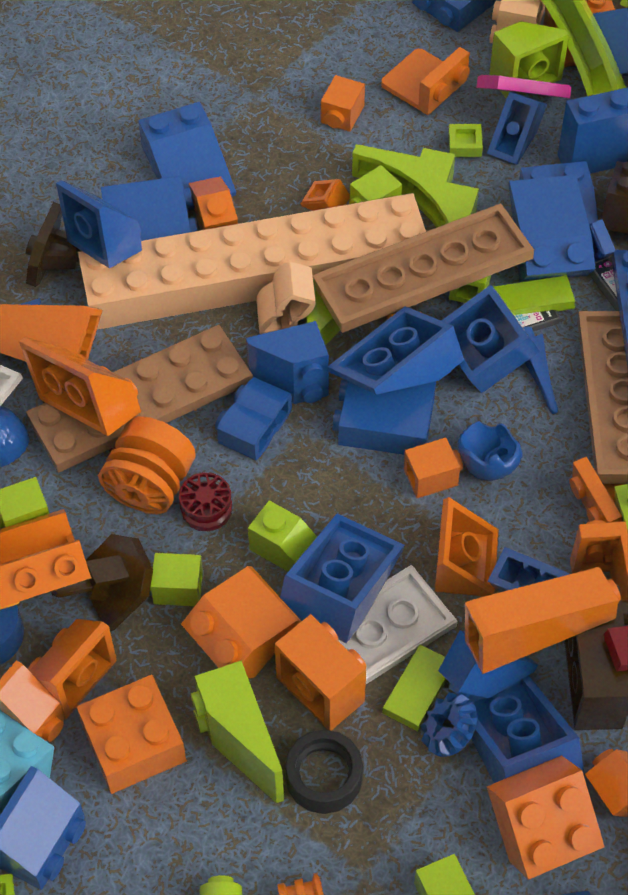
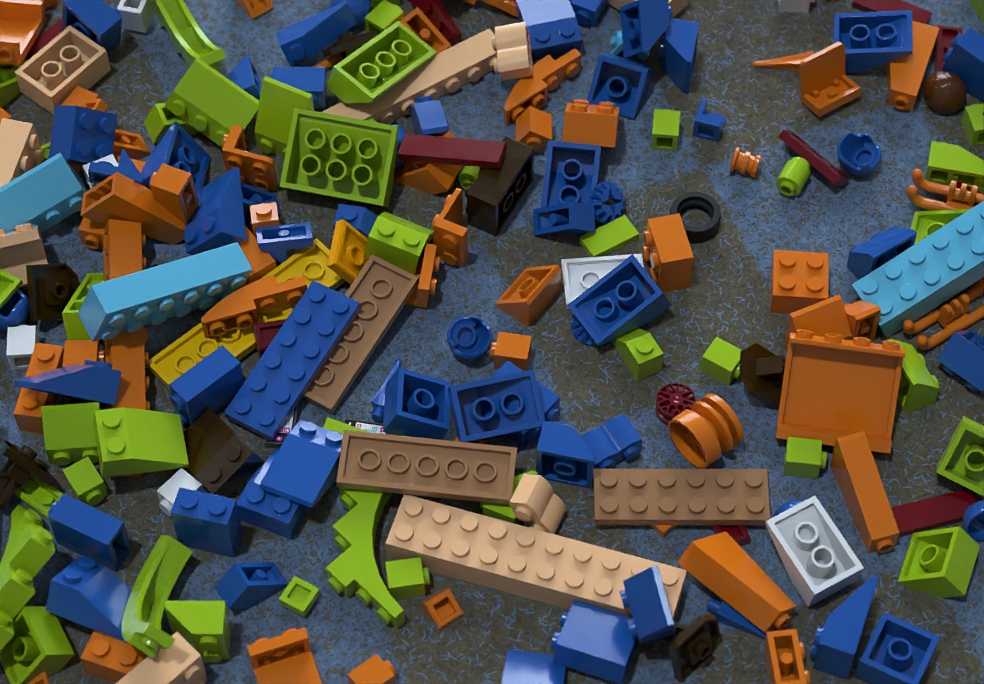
camera: 150 degrees left, 0 degrees up
(80, 386) = (727, 481): orange slope -> none
(213, 203) = (539, 626): orange slope -> none
(236, 726) = (737, 254): lime slope -> none
(240, 621) = (701, 303): orange slope -> none
(519, 570) = (508, 243): blue arch -> none
(523, 86) = (238, 595): dark pink tile -> none
(537, 616) = (534, 181): orange slope -> none
(601, 241) = (277, 440): blue tile -> none

